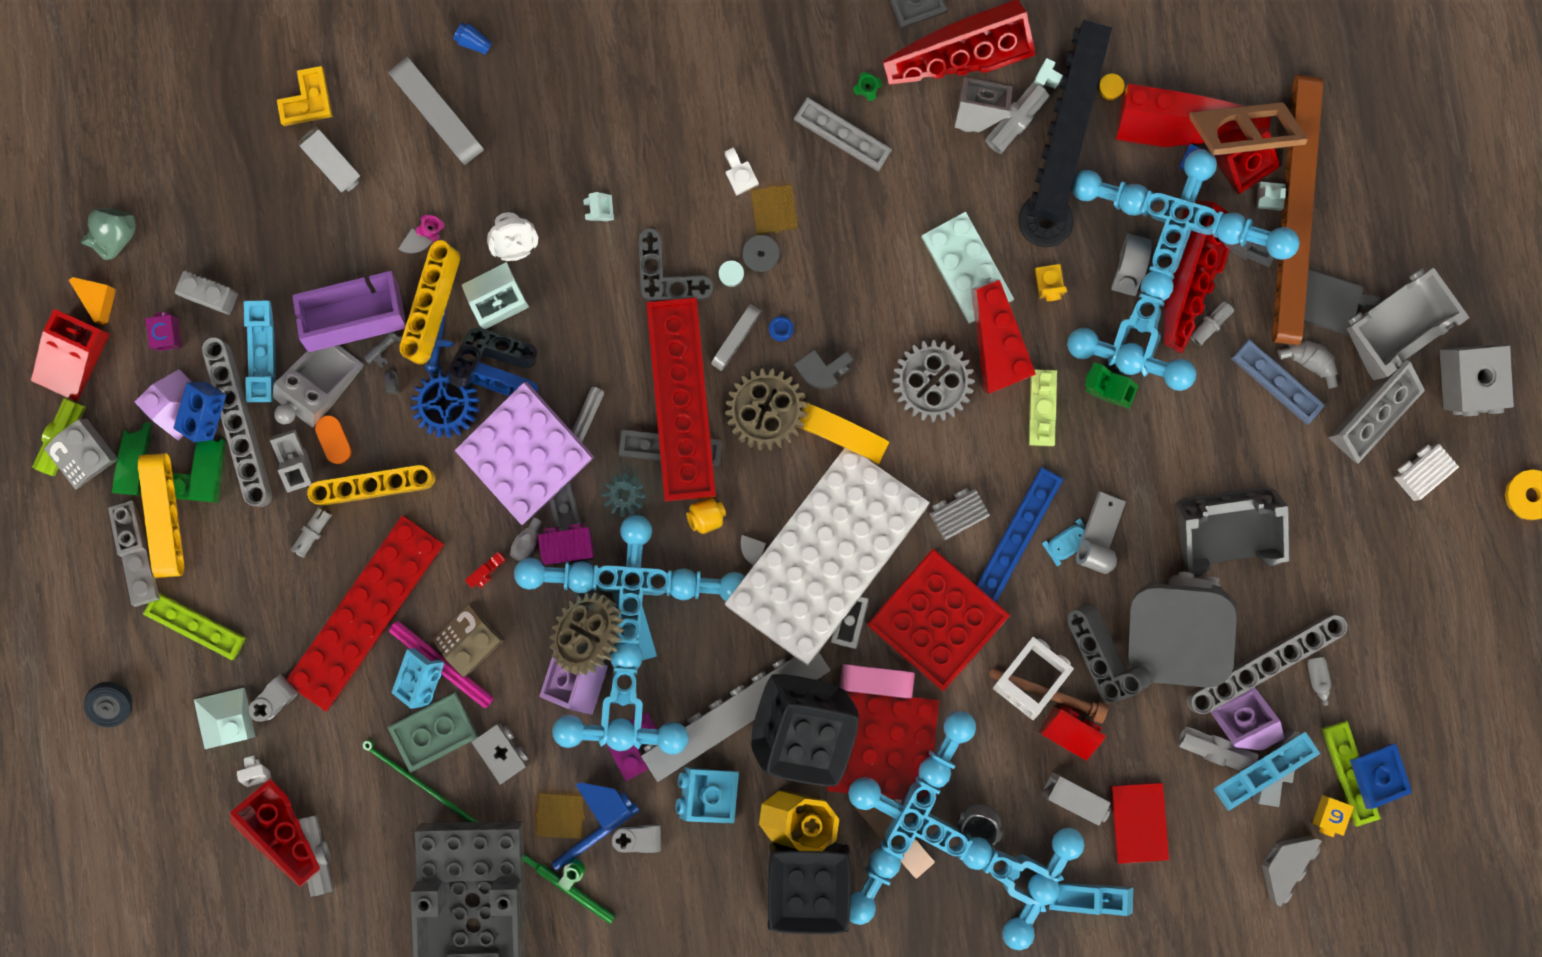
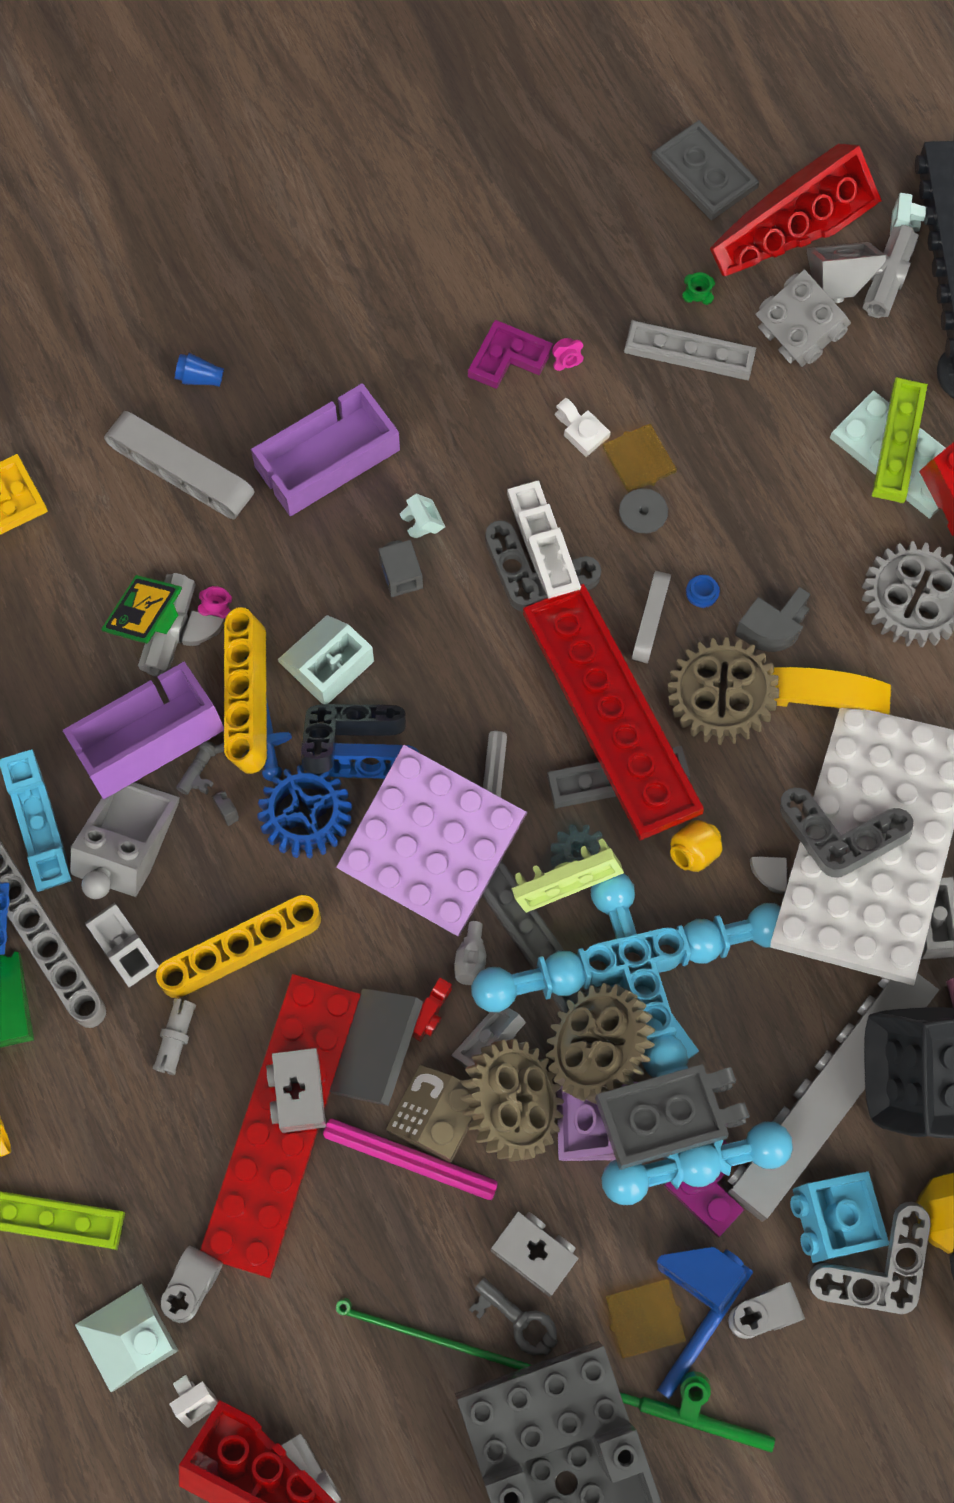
camera: 20 degrees left, 15 degrees down
(329, 159) = (60, 557): light grey slope -> none
(333, 440) = (168, 905): orange tile -> none
(375, 220) = (144, 610): none -> piece
(383, 586) = (299, 1068): none -> light grey brick
(391, 233) = (160, 650): none -> light grey piece
(417, 679) = (385, 1187): medium azure bracket -> none
(433, 732) = (429, 1258): sand green tile -> none
(440, 584) = (376, 1046): none -> dark grey tile
(478, 790) = (492, 1296): none -> dark grey piece
(511, 237) = (327, 580): white tile -> none
(516, 651) = (512, 1100): none -> dark tan gear
(517, 604) = (493, 1028): none -> light grey plate
(543, 135) = (326, 453): none -> medium lavender piece
(566, 545) = (529, 937): magenta brick -> none
(569, 242) = (400, 567): none -> dark grey brick
(605, 512) = (567, 878): none -> yellowish green plate
(608, 699) = (668, 1114): none -> dark grey tile
(678, 254) = (543, 539): none -> white slope
(701, 90) = (504, 347): none -> magenta plate
(720, 845) = (885, 1282): none -> light grey beam
(731, 273) = (615, 546): light aqua tile -> none
(748, 110) = (567, 353): none -> dark pink plate
(793, 550) = (837, 844): none -> dark grey beam
(931, 140) = (802, 319): none -> light grey brick
(966, 259) = (899, 440): none -> lime tile

